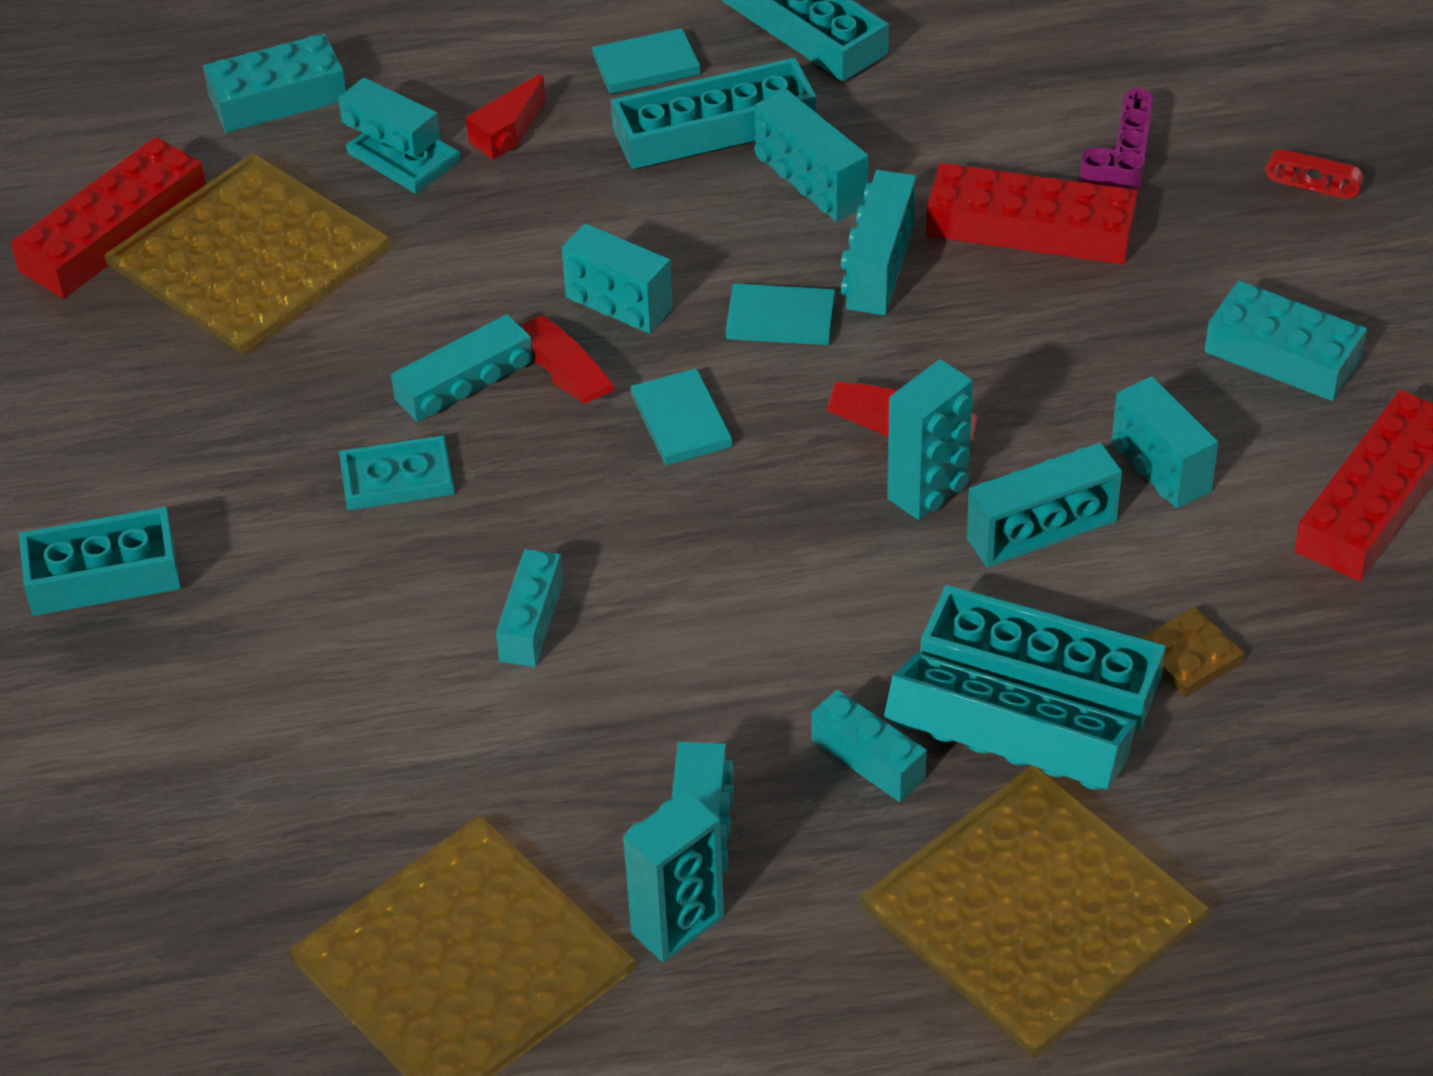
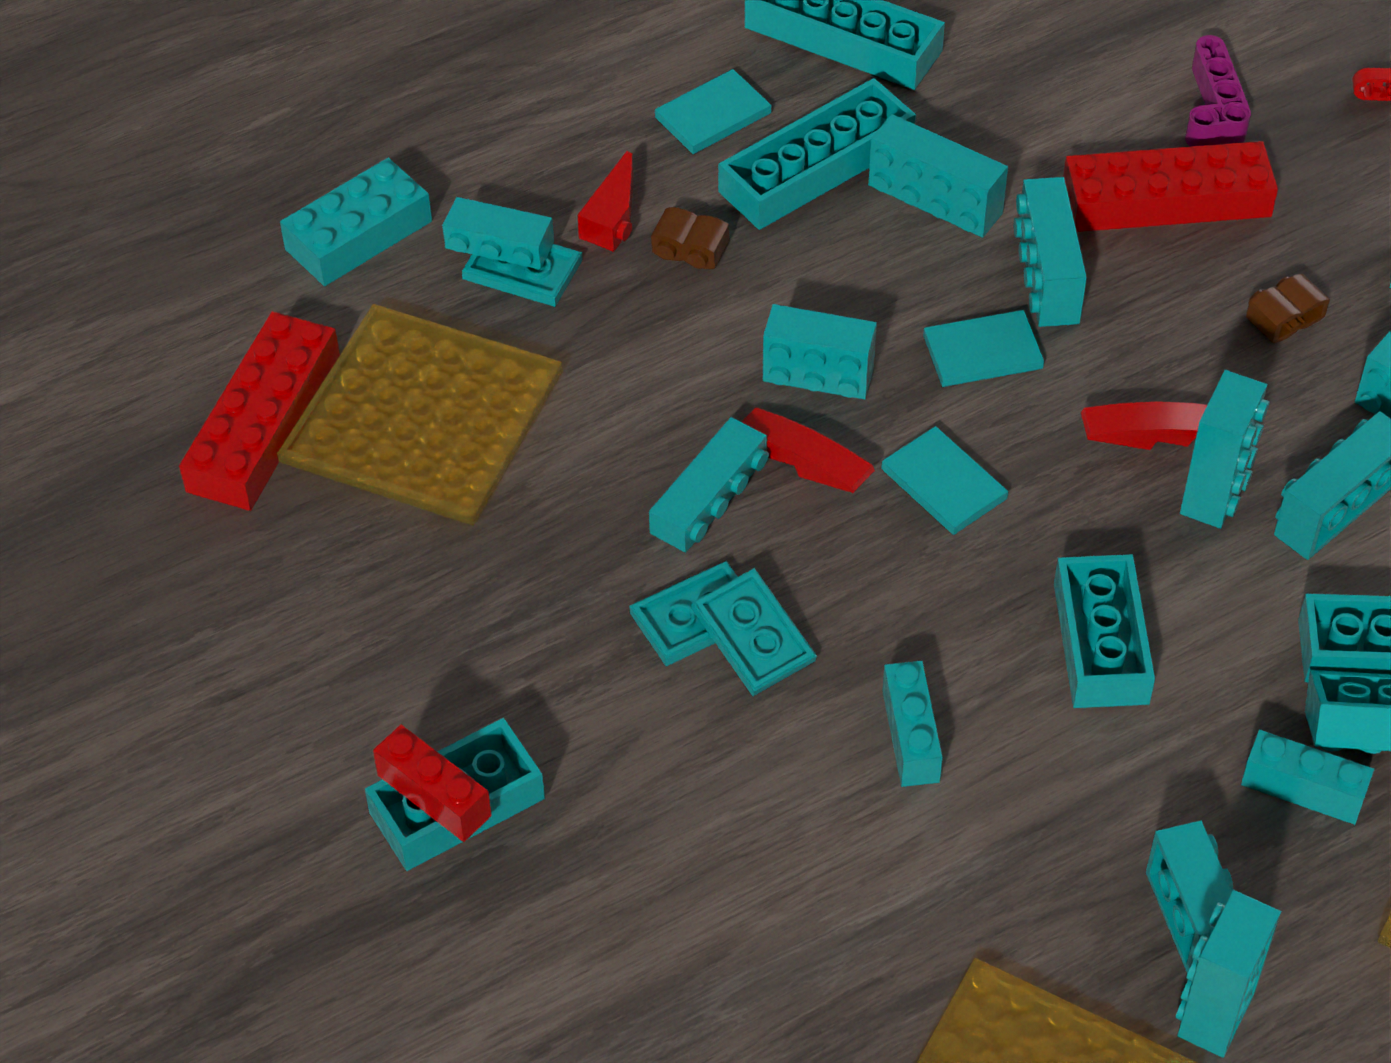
camera: 20 degrees left, 5 degrees up
(69, 538) = (432, 783): none -> red brick
(434, 498) = (753, 632): none -> teal tile
(561, 161) = (690, 238): none -> reddish brown brick
(745, 574) = (1103, 631): none -> teal brick
(1087, 344) = (1287, 307): none -> reddish brown brick

